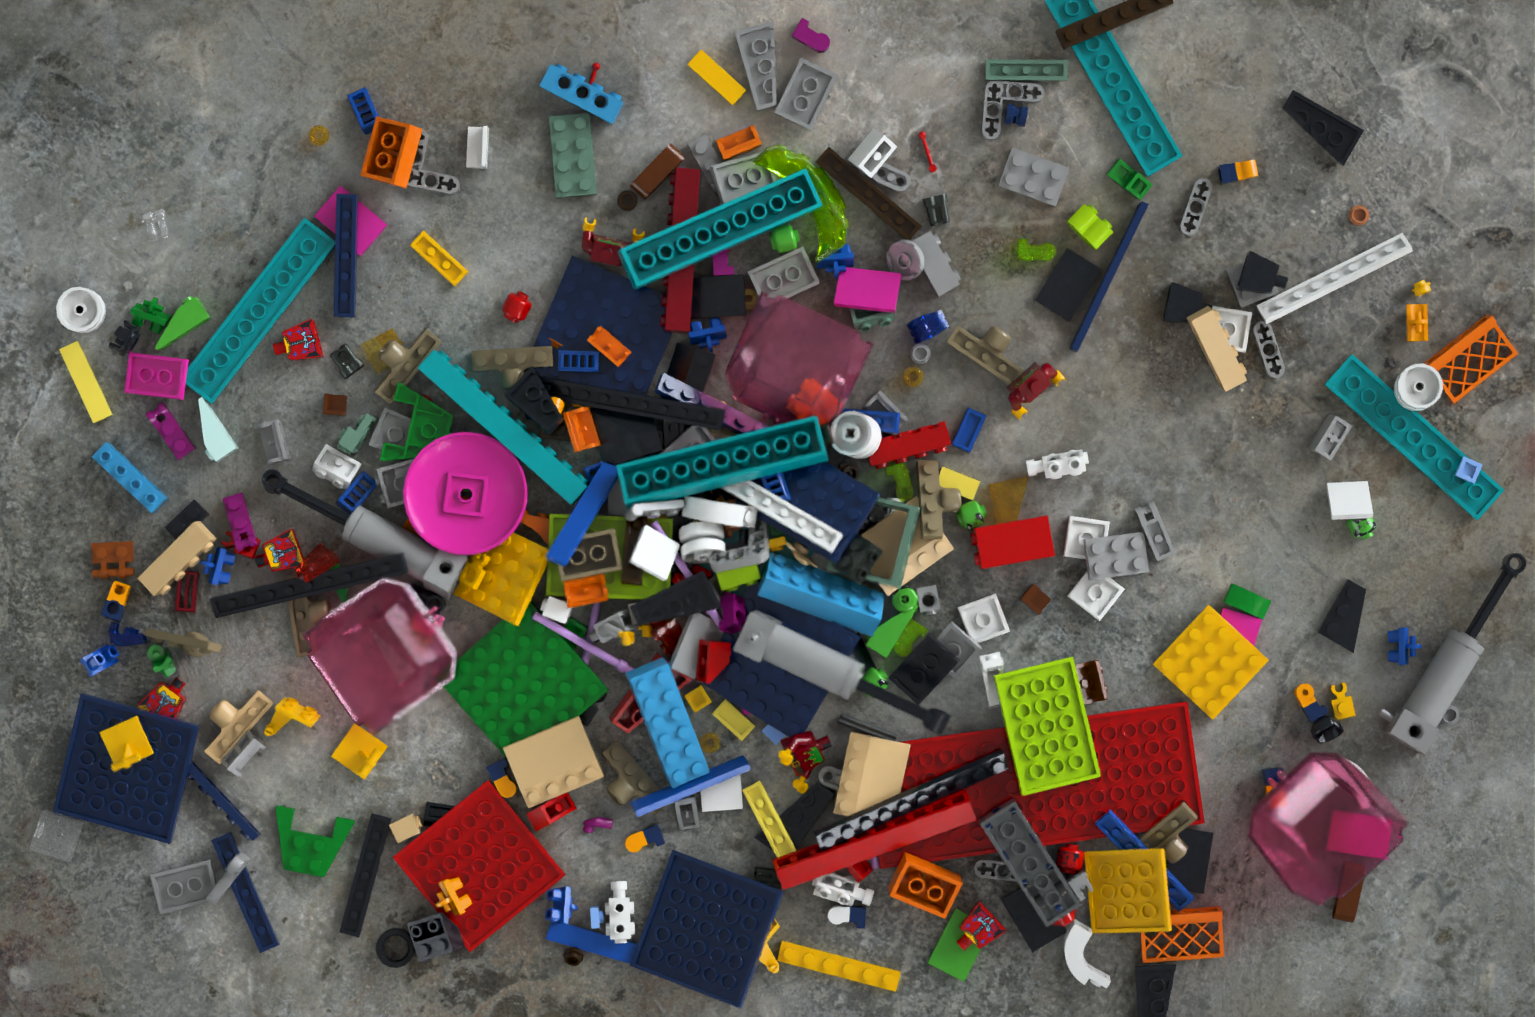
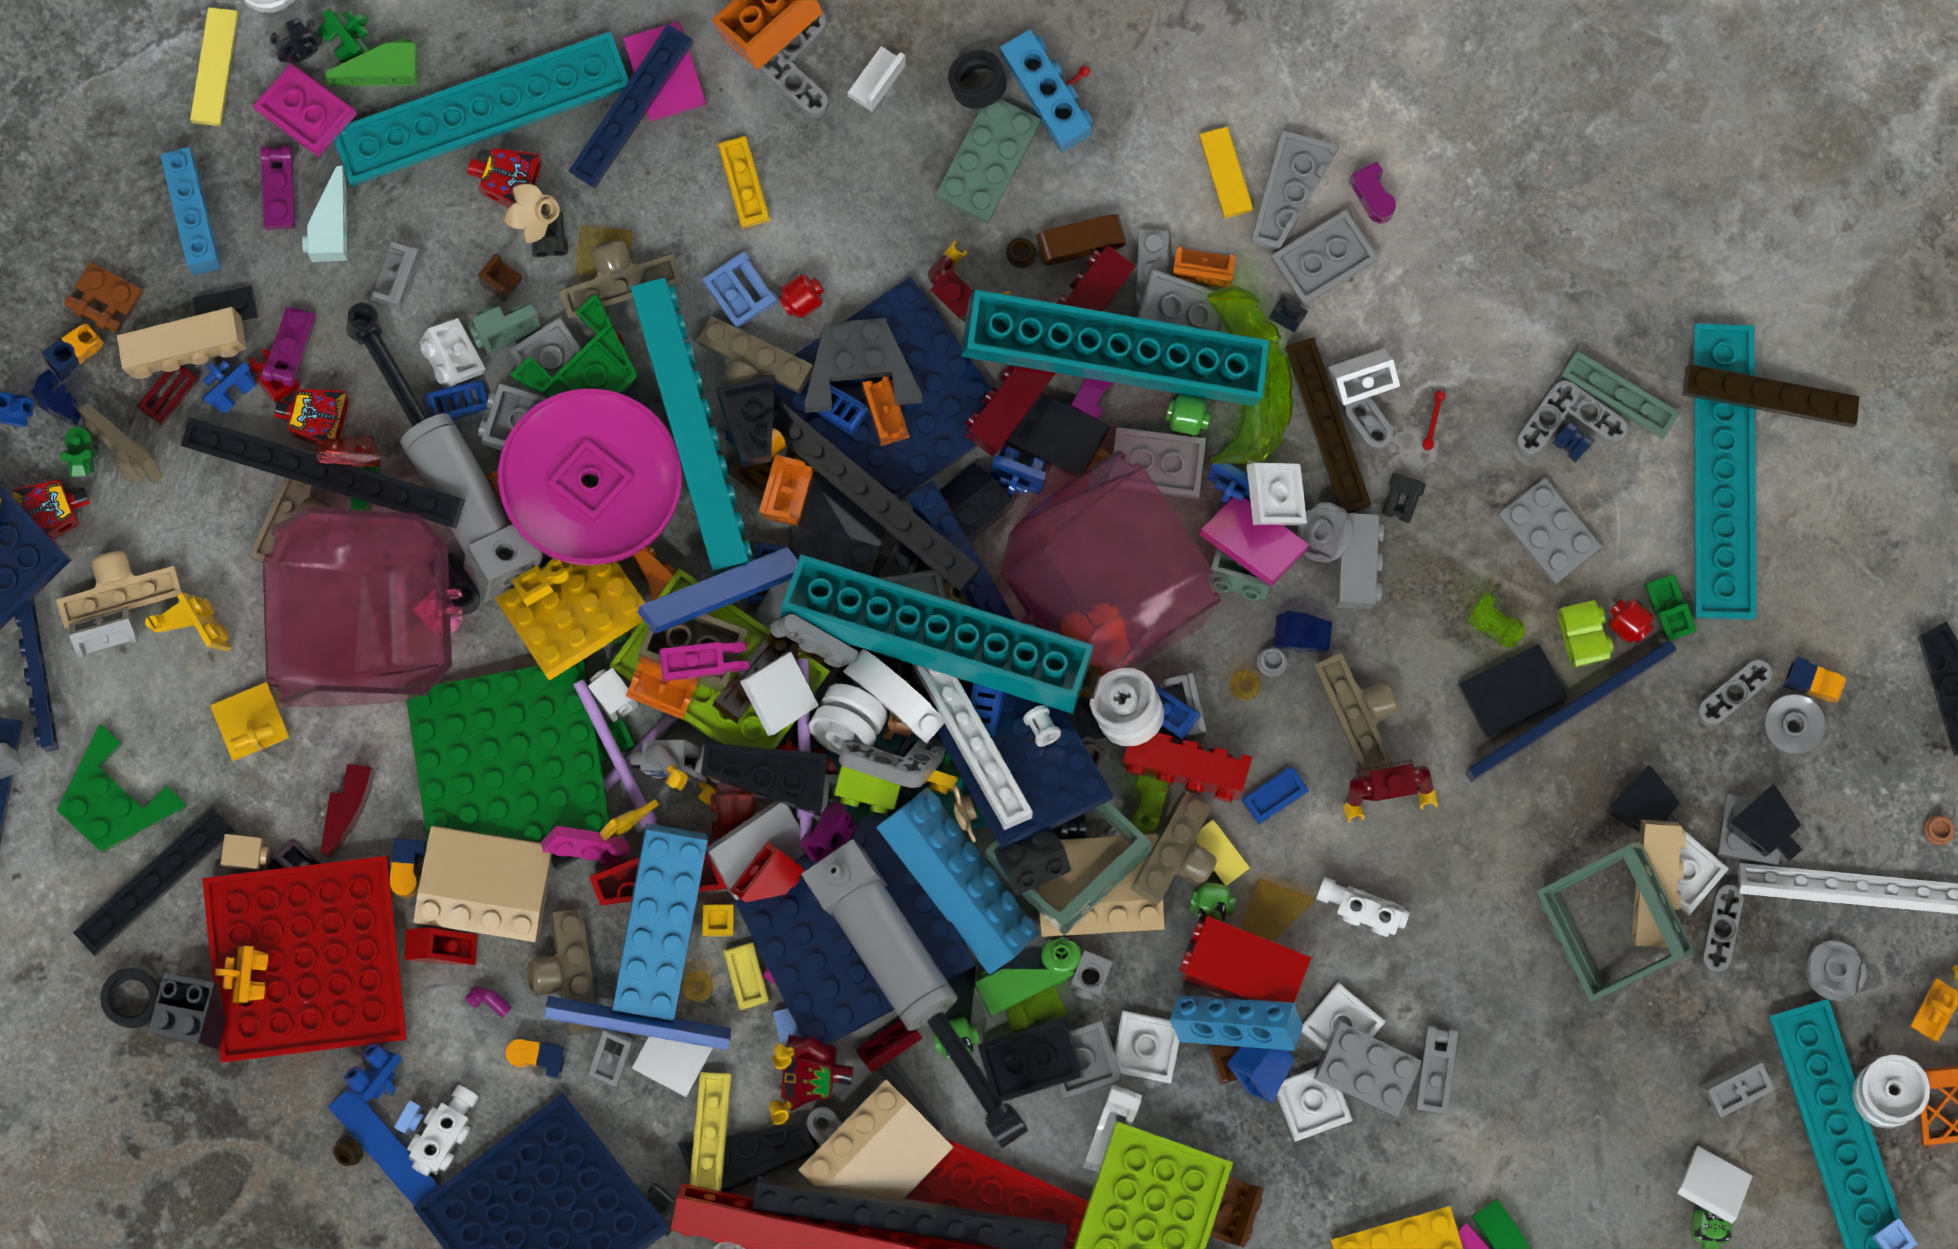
camera: 30 degrees right, 10 degrees down
(327, 358) = (527, 214): none -> tan plate
(447, 766) = (346, 808): none -> dark red slope
(476, 331) = (732, 295): none -> medium blue plate
(525, 105) = (970, 62): none -> black tyre
(570, 322) = (859, 352): none -> dark grey wing
(596, 704) = (585, 845): none -> dark pink hinge
(598, 564) = (700, 660): none -> dark pink hinge
(612, 676) = (623, 823): none -> yellow piece
(805, 141) = (1288, 314): none -> black plate
(815, 478) = (1042, 725): none -> white bush
(839, 710) = (887, 1045): none -> dark red tile
(864, 255) = (1276, 494): none -> white plate
(1027, 577) = (1236, 1022): none -> dark azure brick
(1055, 588) = (1261, 1070): none -> blue torso
(1111, 202) = (1630, 620): none -> red head
(1224, 363) = (1656, 900): none -> sand green window
(1248, 197) = (1807, 717): none -> light grey dish
(1346, 334) = (1835, 970): none -> light grey tile

